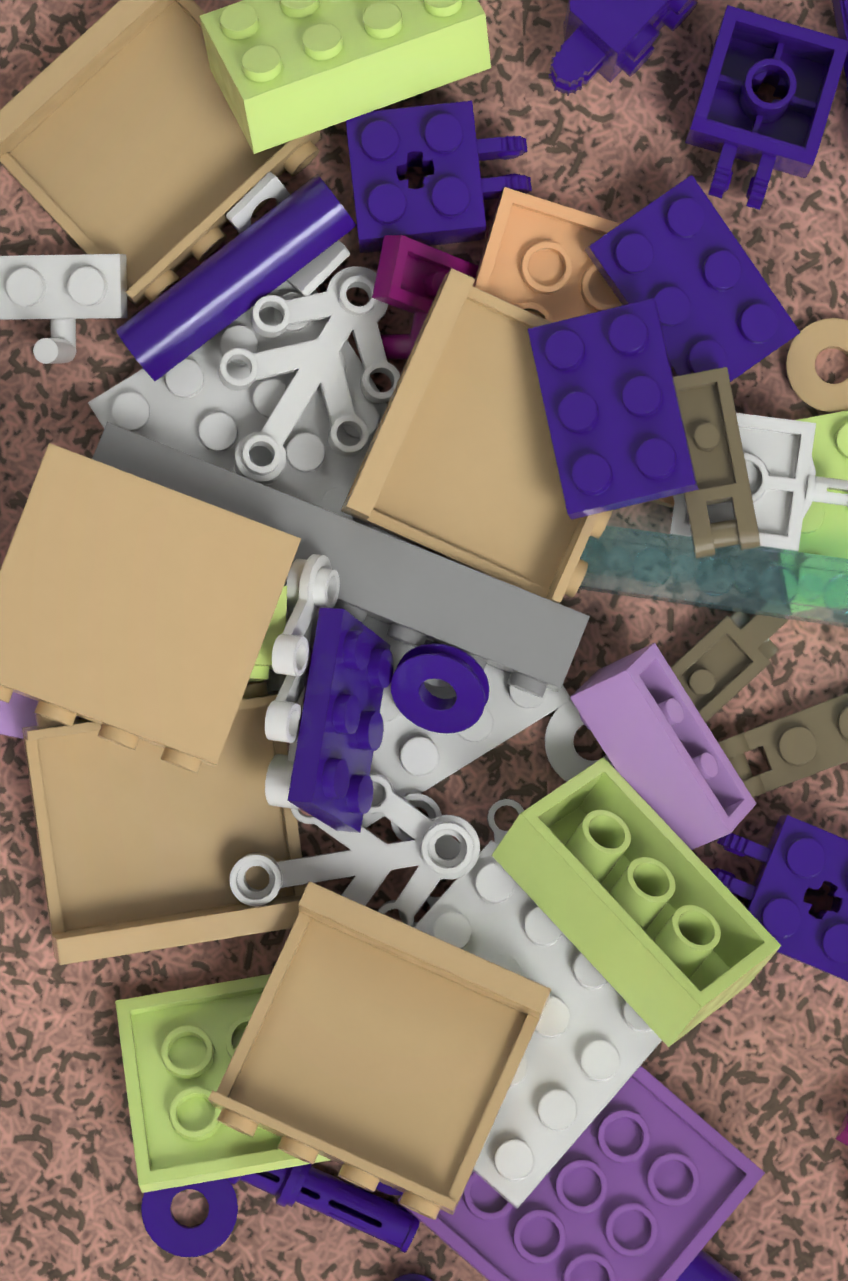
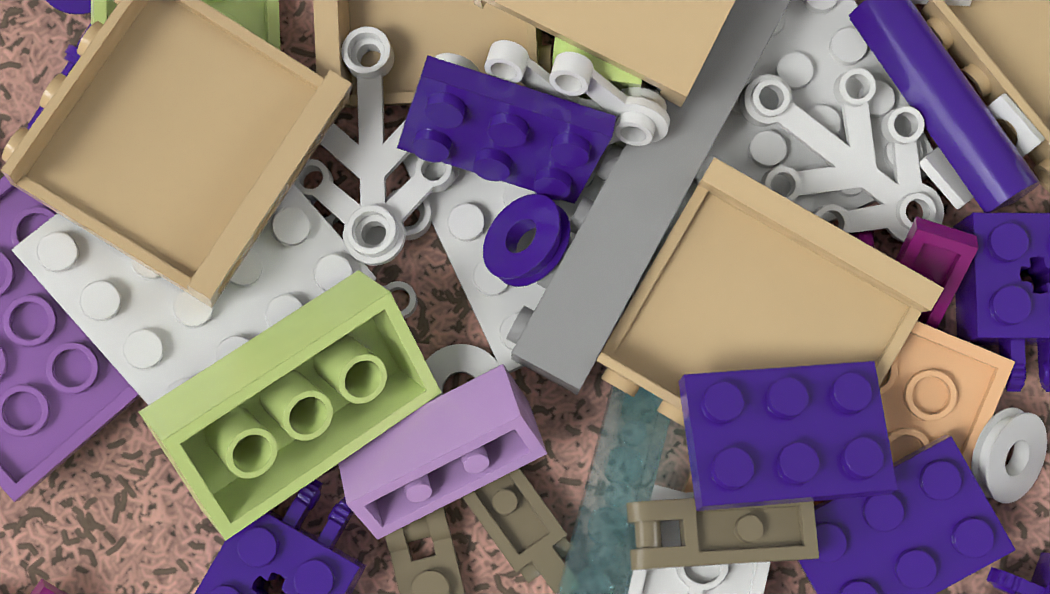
camera: 100 degrees right, 5 degrees down
(594, 203) = (989, 456): none -> white piece

